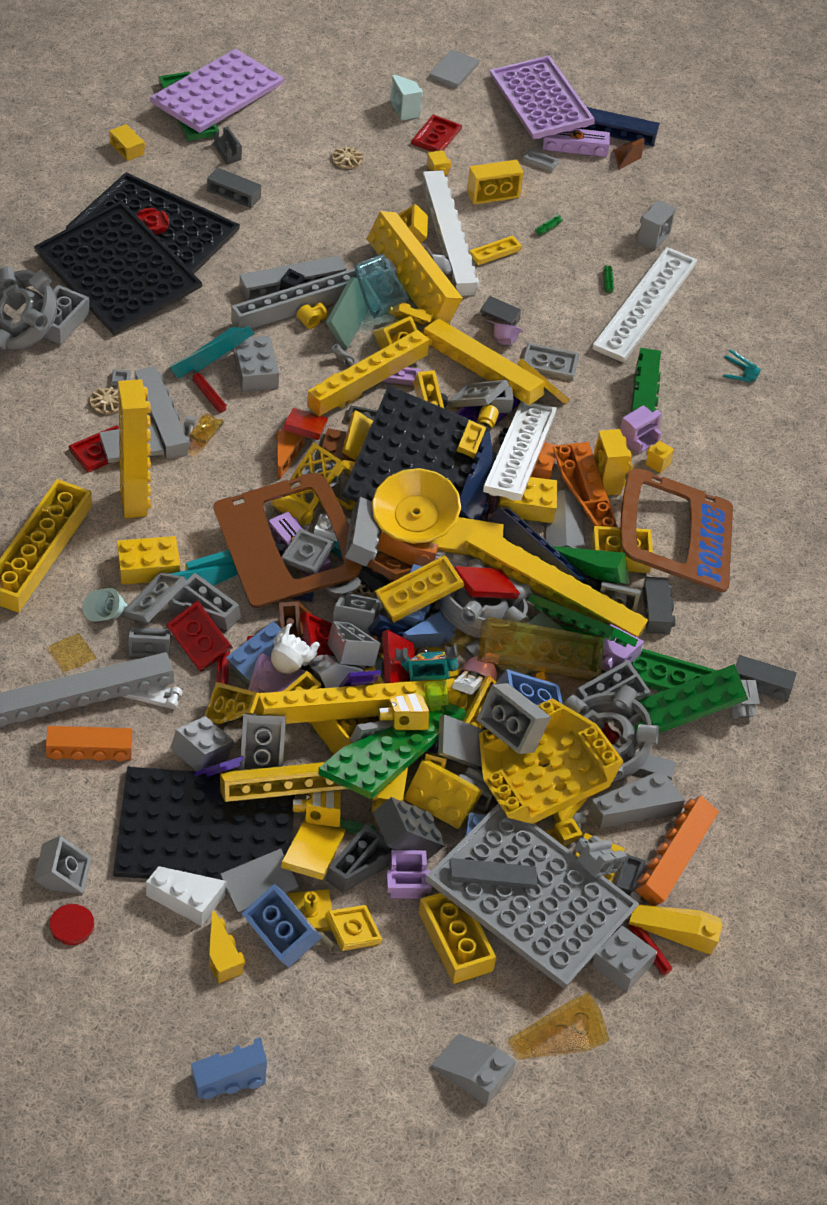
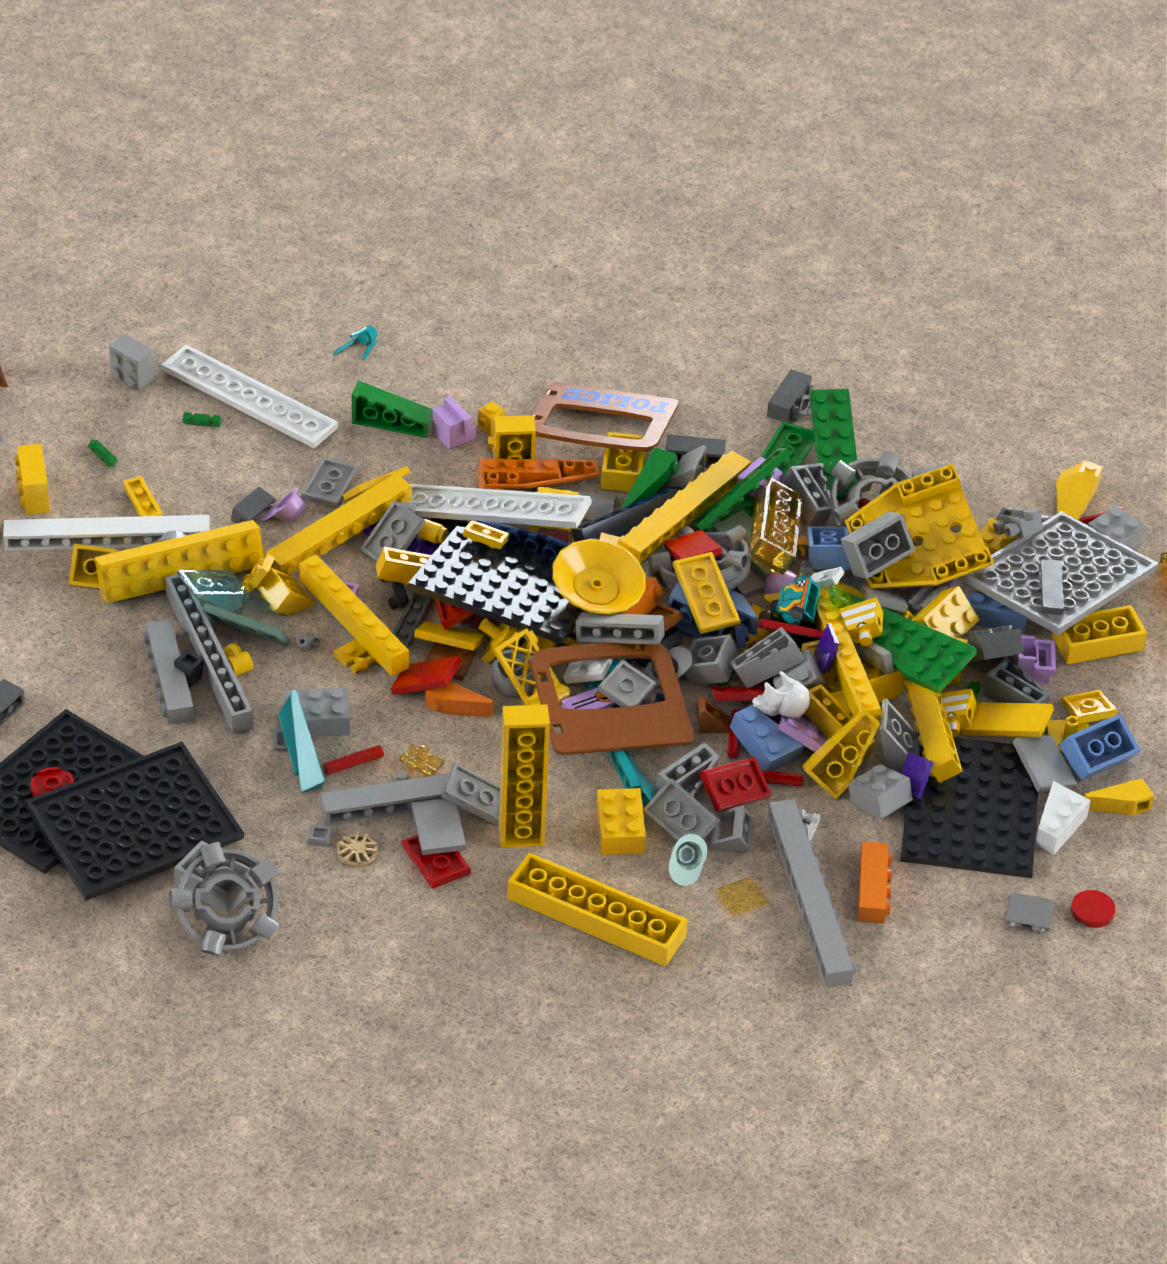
camera: 80 degrees left, 5 degrees down
(169, 462) = (473, 793): none -> light grey tile
(676, 850) = (998, 481): orange brick -> none

